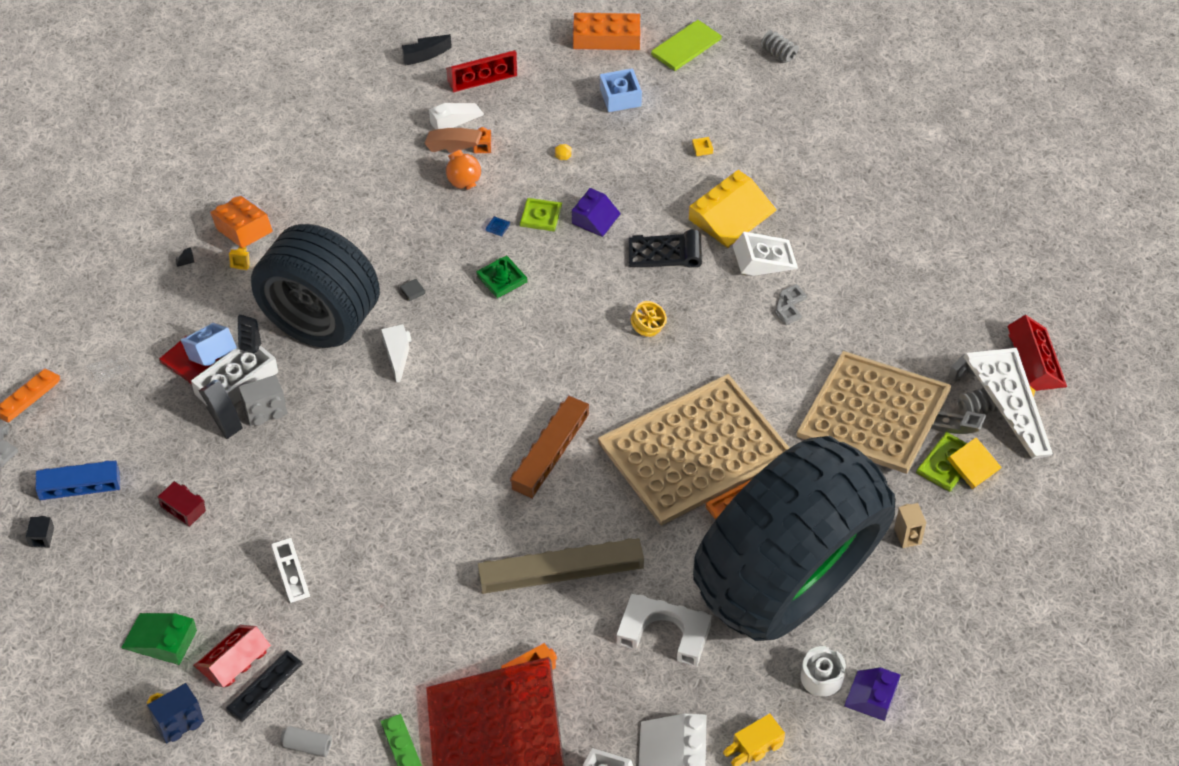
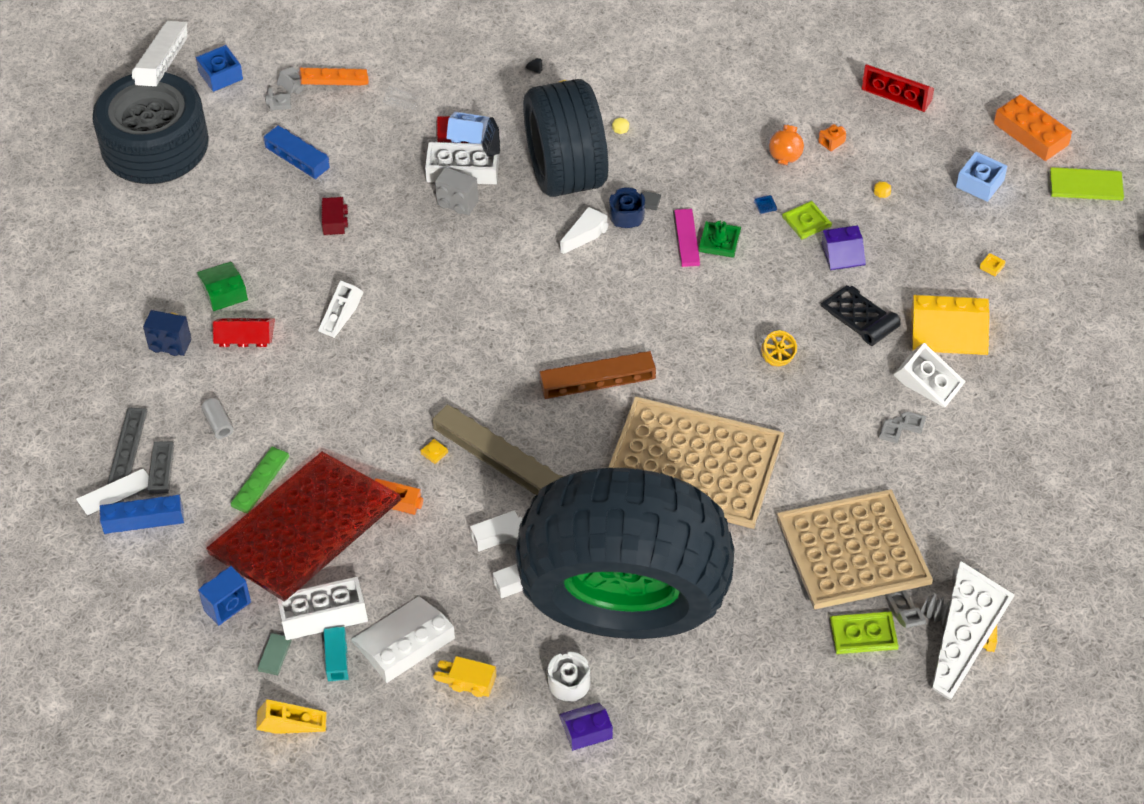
camera: 50 degrees right, 0 degrees up
(40, 531) = (238, 164): black brick -> none
(221, 408) = (422, 174): black slope -> none
(241, 221) = (595, 65): orange brick -> none
(264, 686) = (240, 365): black tile -> none
(408, 307) = (627, 208): none -> dark blue brick
(426, 49) = (879, 44): black slope -> none
(452, 139) = (809, 118): nougat slope -> none
(453, 114) = (835, 103): white slope -> none
(475, 295) = (687, 237): none -> dark pink tile
(507, 608) = (434, 451): none -> yellow plate
(910, 525) = (762, 642): tan brick -> none
(974, 463) = (878, 649): yellow tile -> none
(1036, 354) = (1042, 622): red slope -> none

